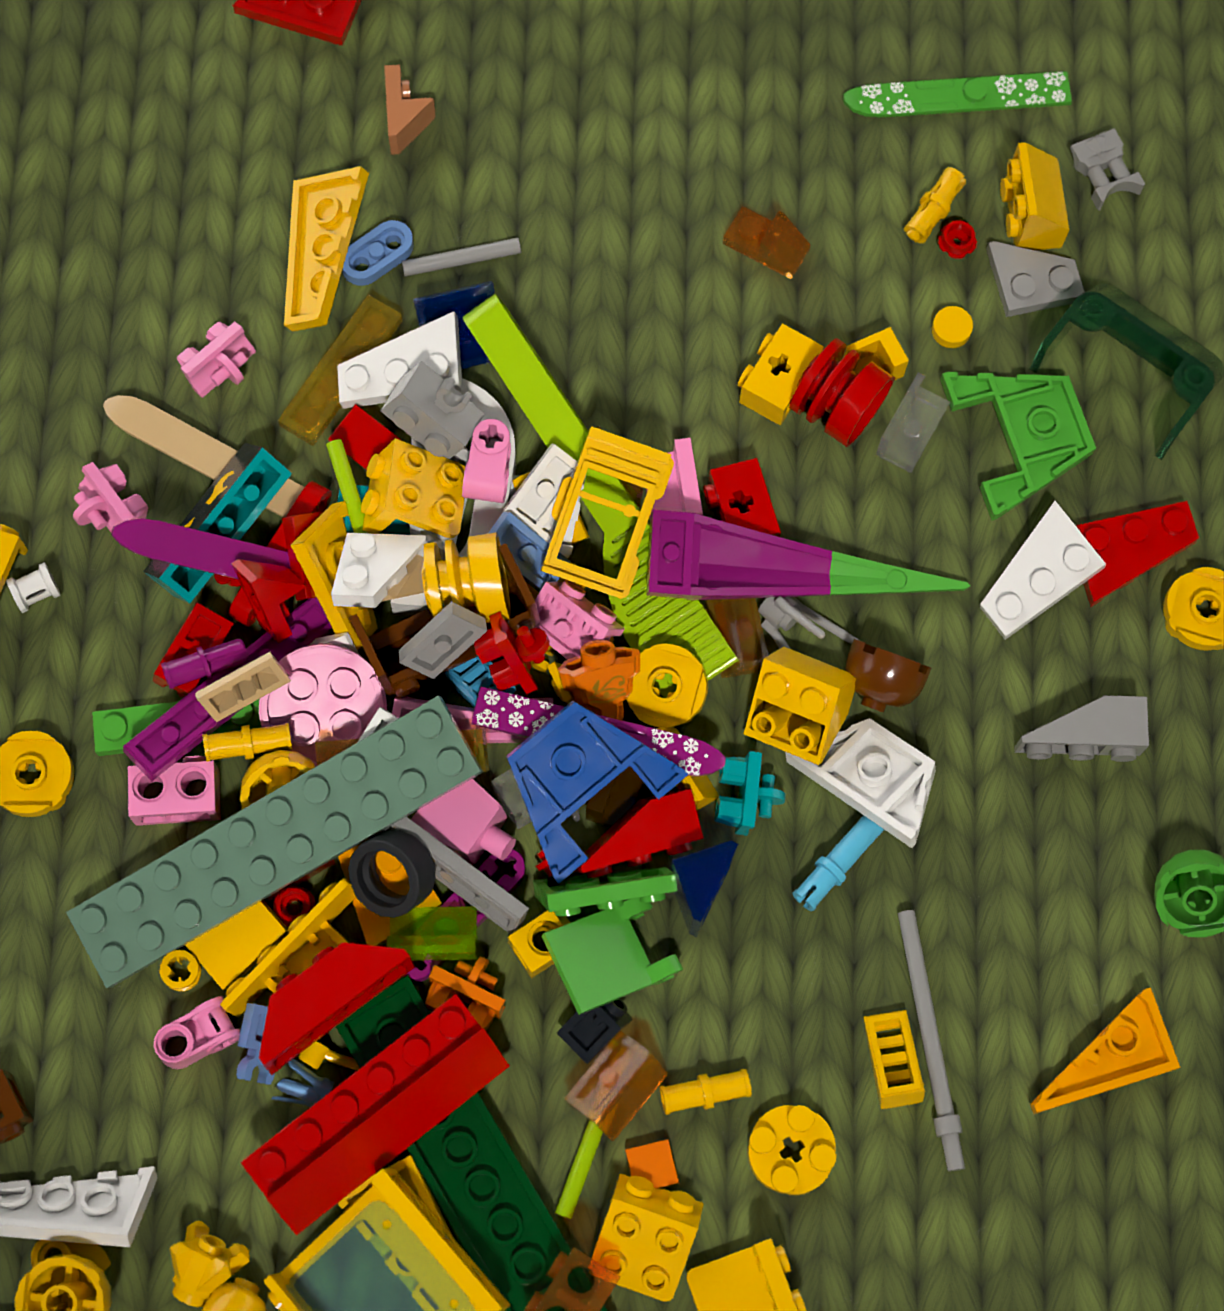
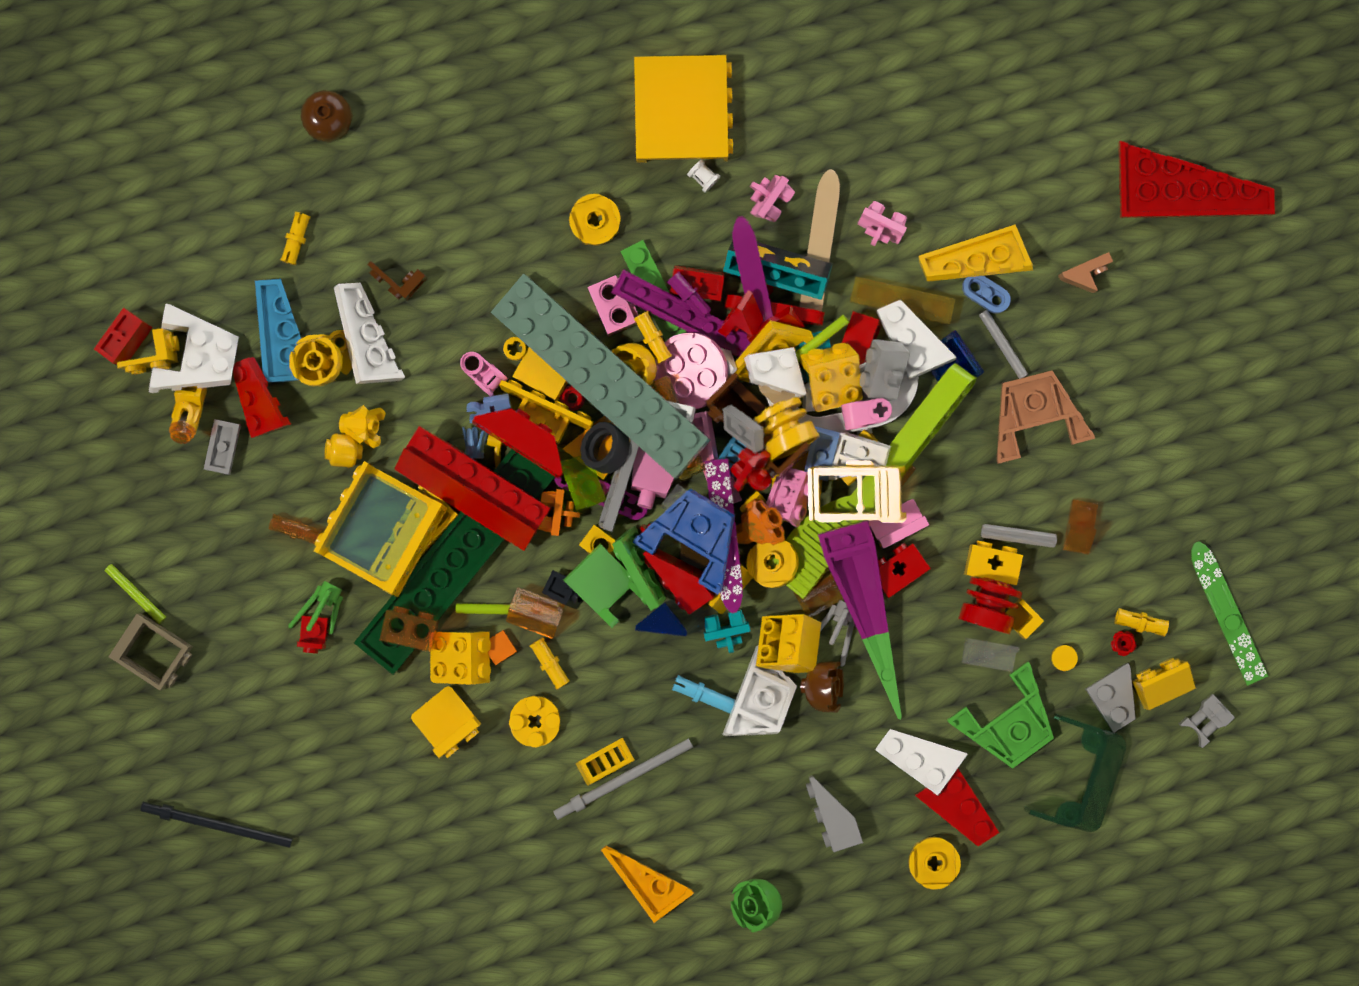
camera: 75 degrees right, 15 degrees up
(242, 686) = (681, 322): tan slope -> none
(563, 243) = (1034, 403): none -> nougat wing
(749, 328) = (1018, 535): none -> light grey axle

